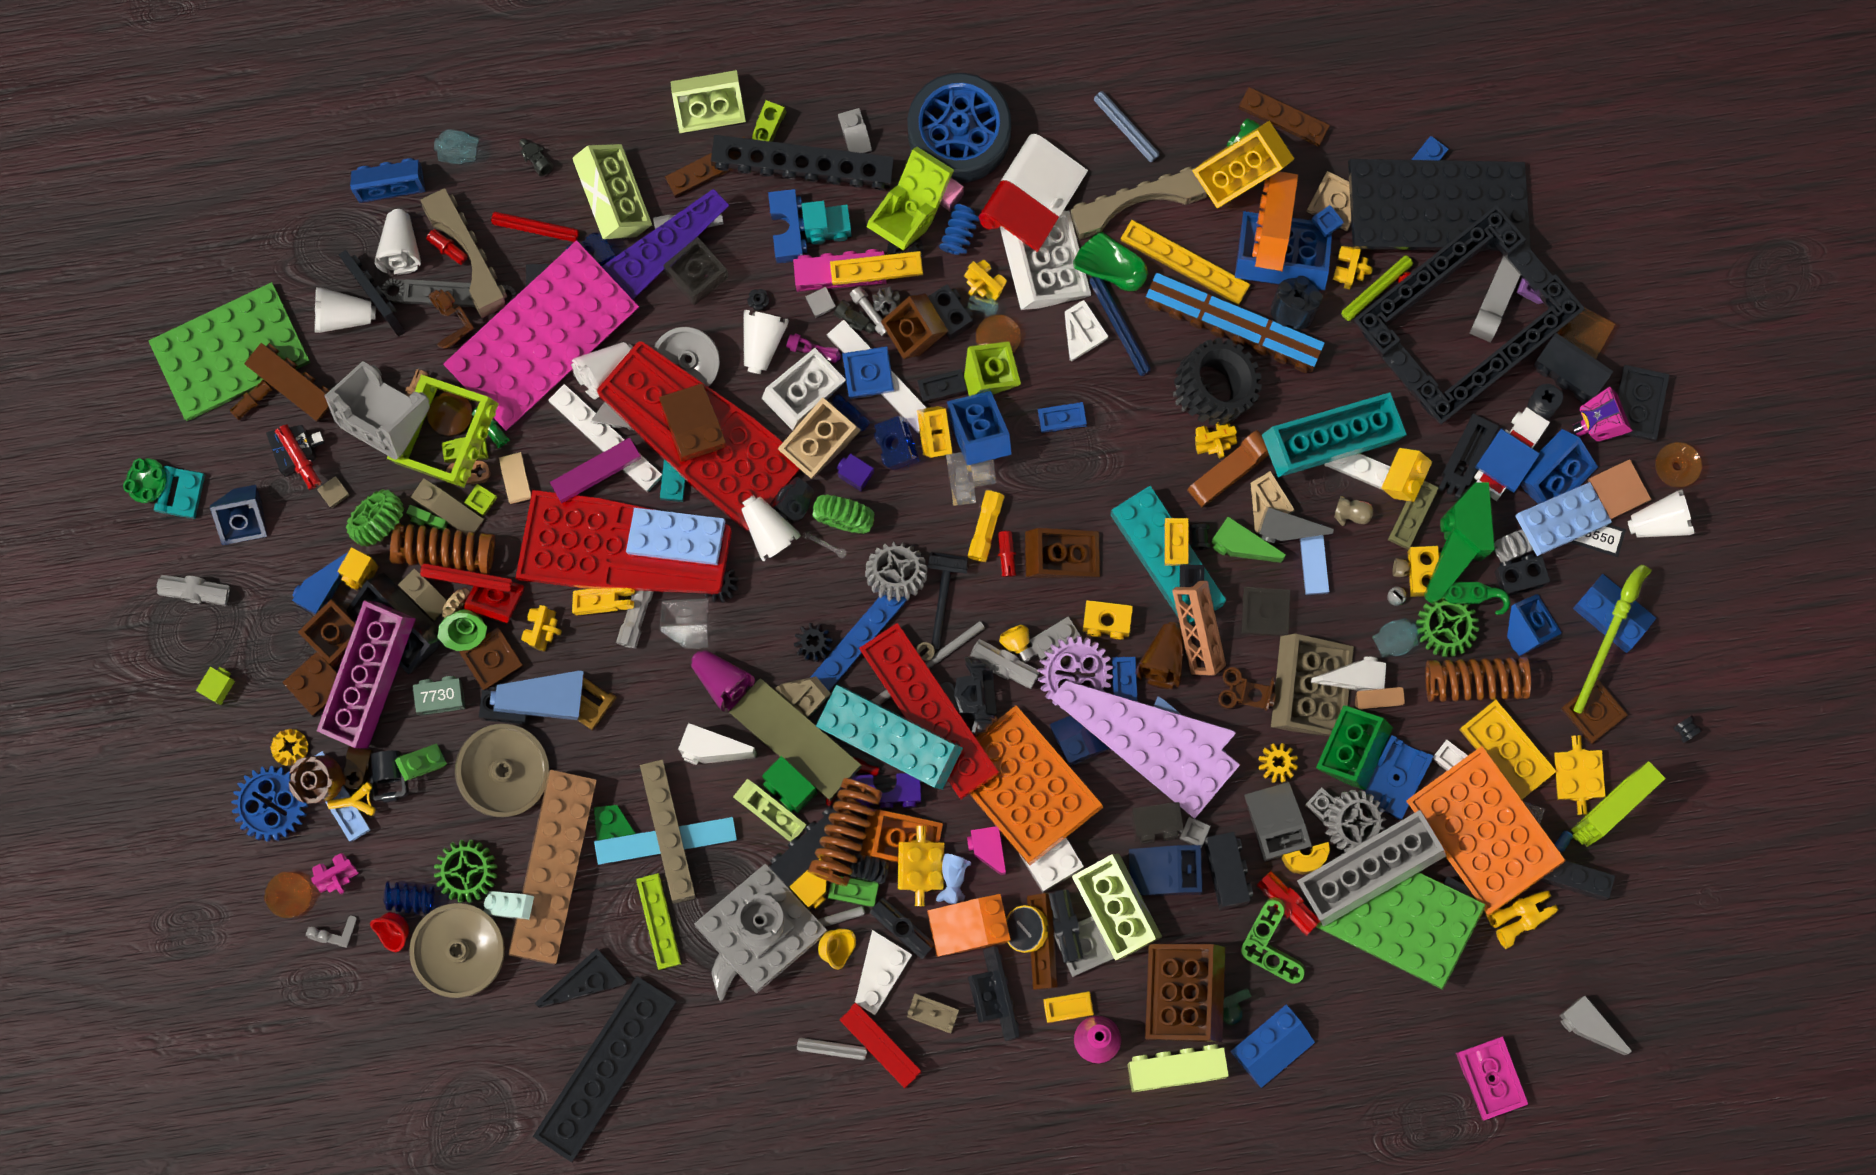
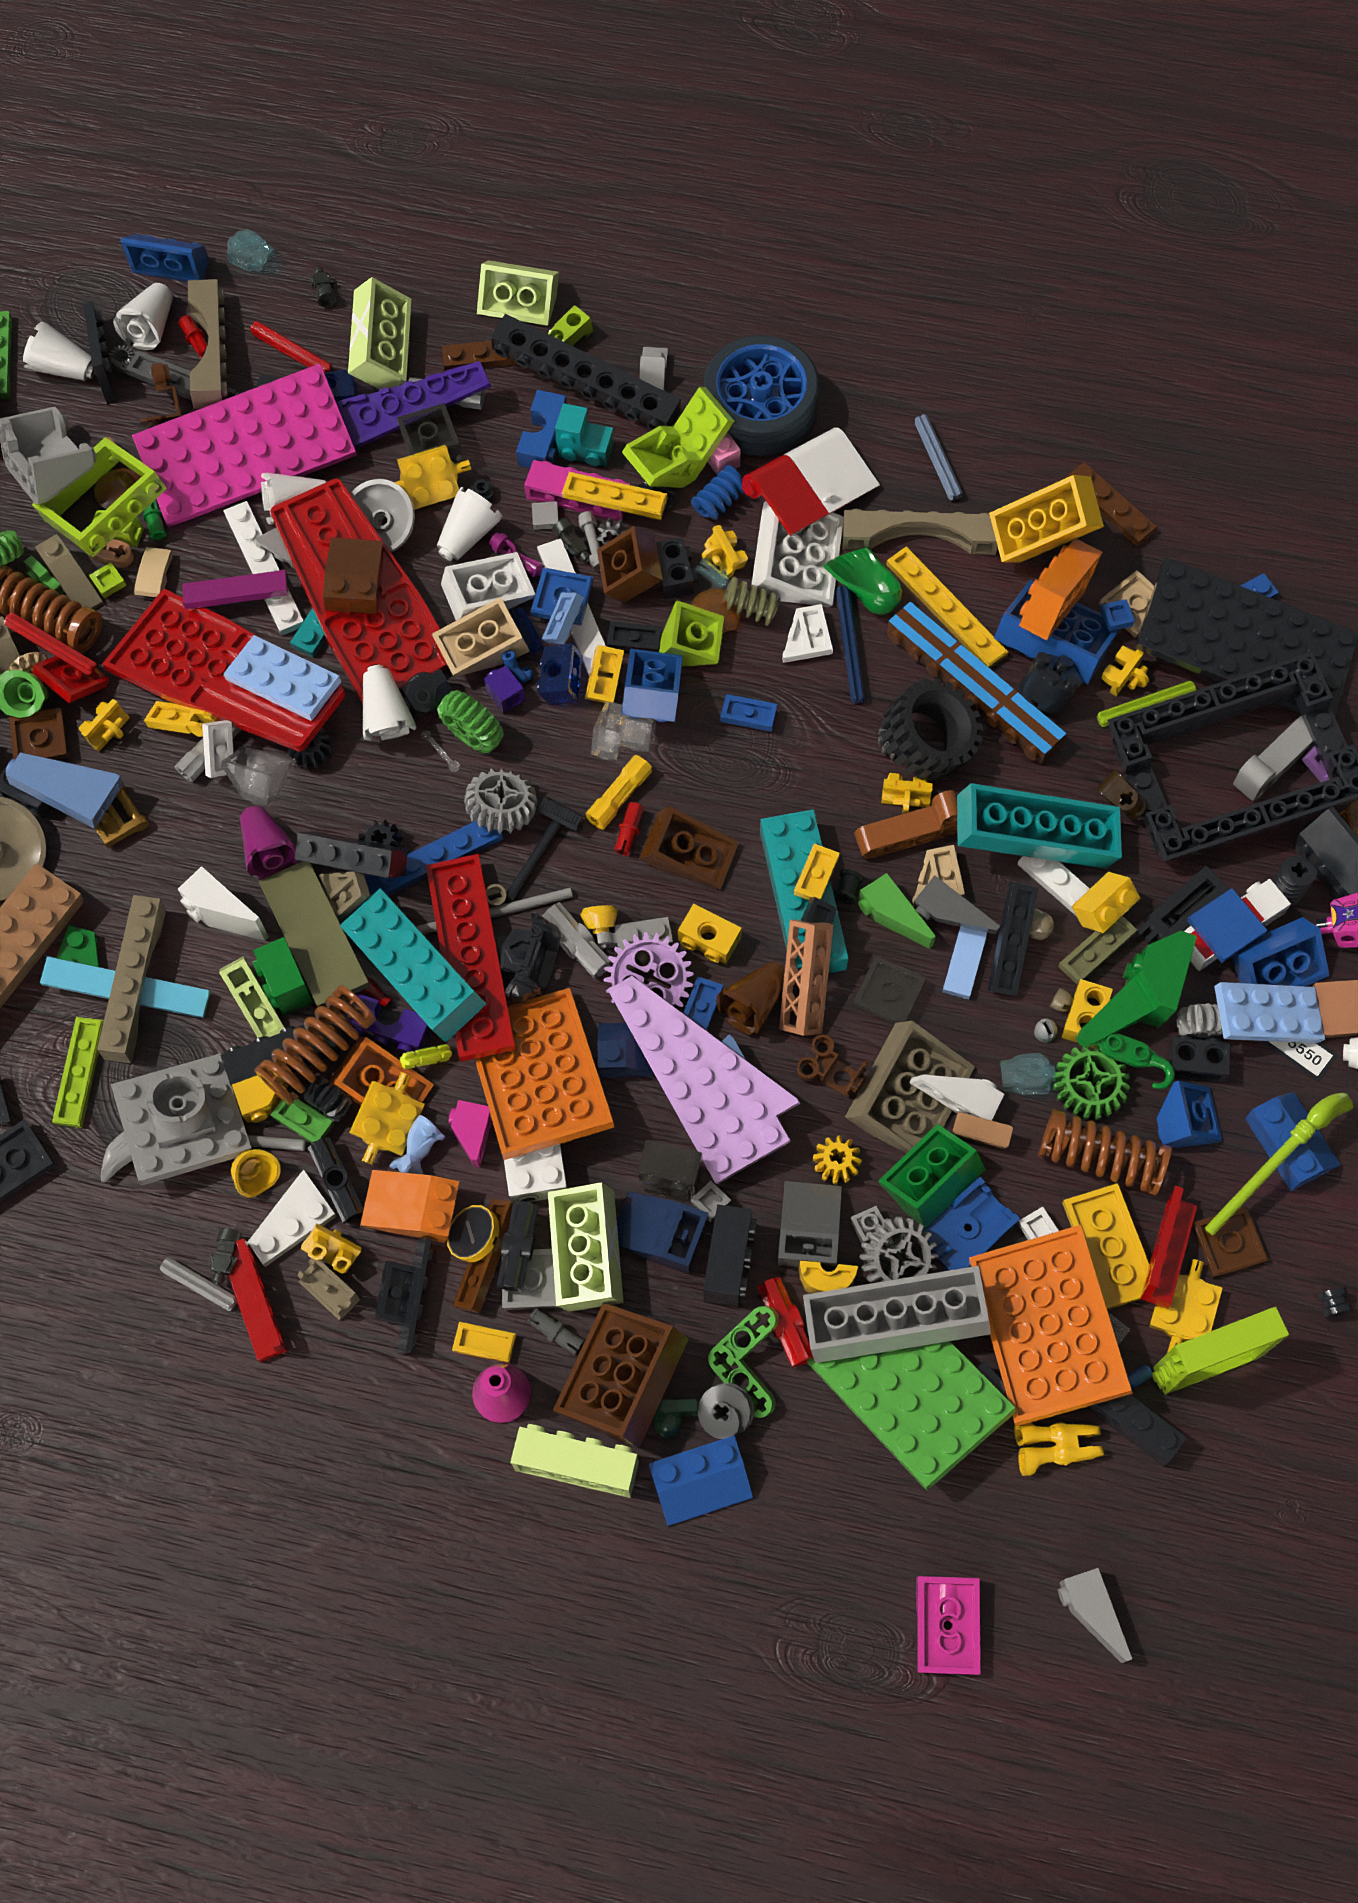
camera: 20 degrees right, 10 degrees down
(647, 614) = (217, 746): none -> white plate
(712, 306) = (430, 476): none -> yellow plate
(799, 664) = (351, 854): none -> black brick
(844, 1025) = (223, 1261): none -> pearl dark grey piece
(862, 454) = (521, 675): none -> blue arm
(880, 396) = (562, 619): none -> medium blue plate
(924, 982) = (331, 1248): none -> yellow hips
(928, 805) = (425, 1056): none -> neon yellow axle
(1026, 319) = (751, 600): none -> olive piece
(1119, 978) = (555, 1331): none -> dark grey pin
(1274, 998) = (712, 1415): none -> dark grey piece
(1346, 534) = (1013, 939): none -> black plate
(1384, 376) = (1121, 794): none -> dark brown piece
(1552, 737) = (1169, 1250): none -> red fence

